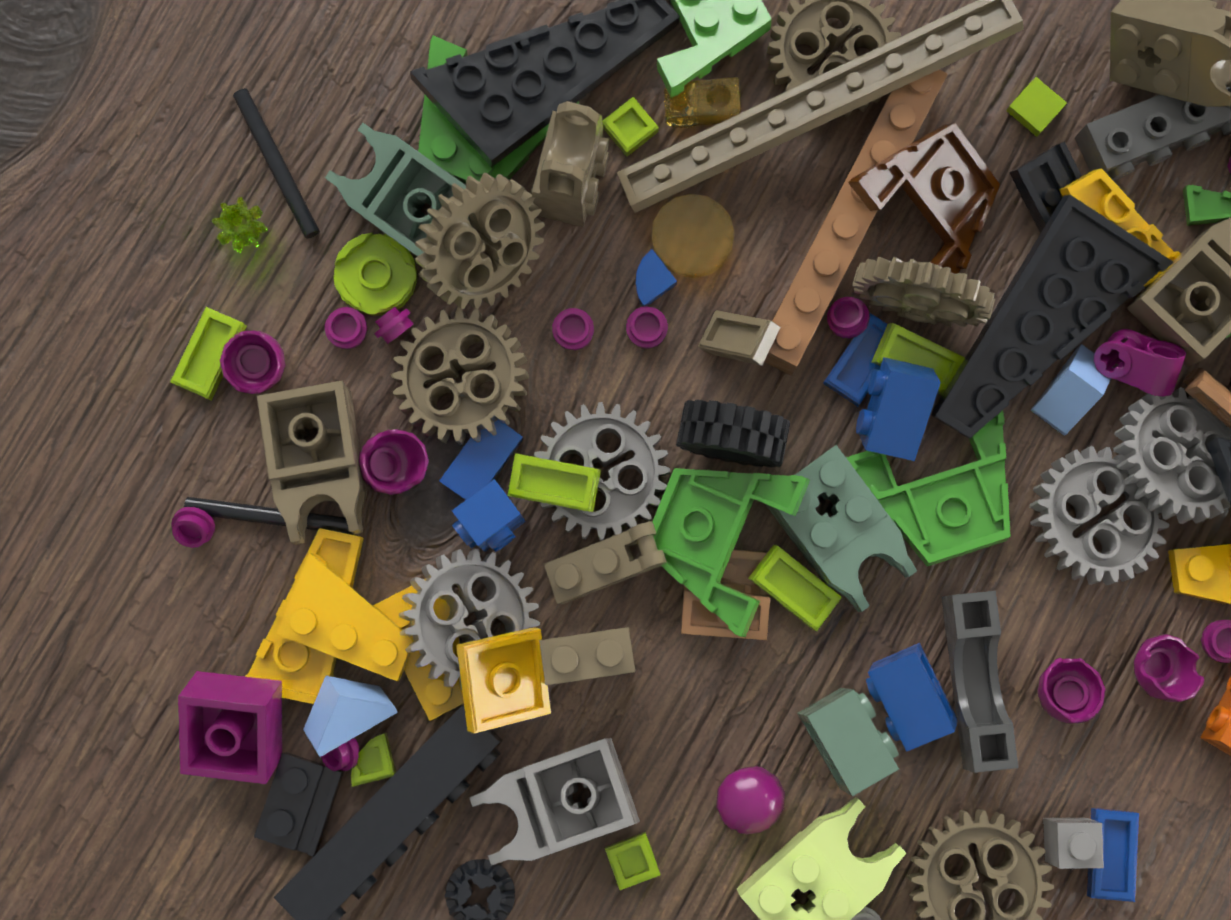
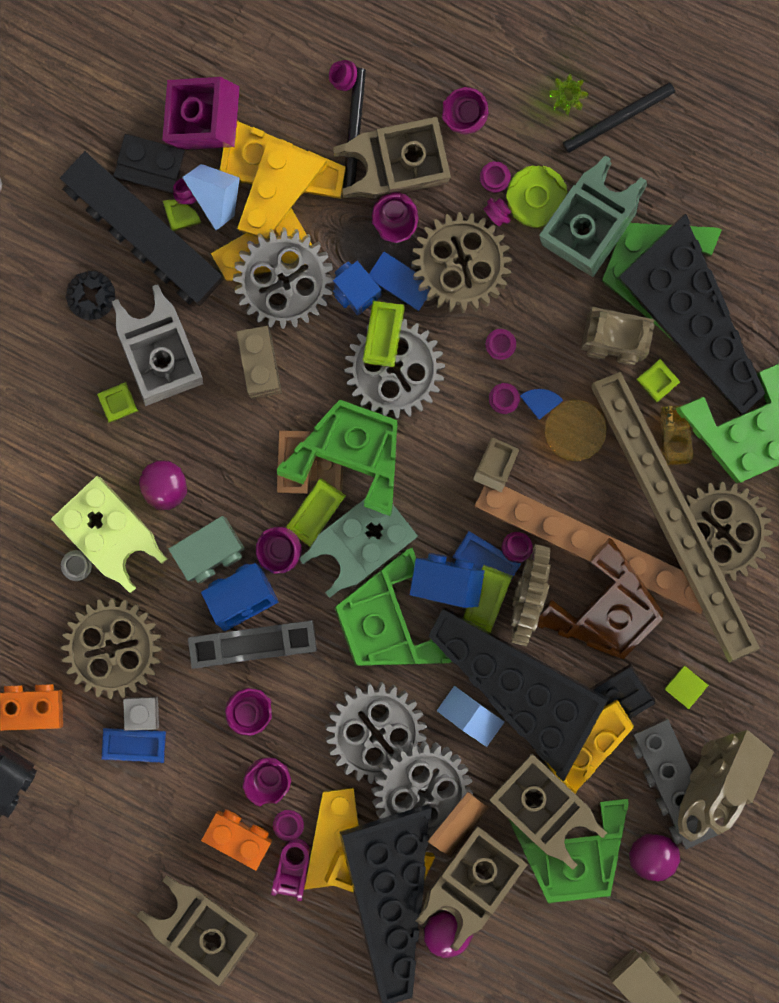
camera: 90 degrees right, 5 degrees up
(200, 364) = (464, 72): lime tile -> none
(454, 249) = (543, 254): dark tan gear -> none
(503, 680) = (240, 303): yellow tile -> none
(604, 563) = (326, 372): dark tan plate -> none
(733, 433) = (423, 461): black tyre -> none
(847, 640) = (278, 550): none -> magenta hair
(1142, 362) = (489, 762): magenta piece -> none

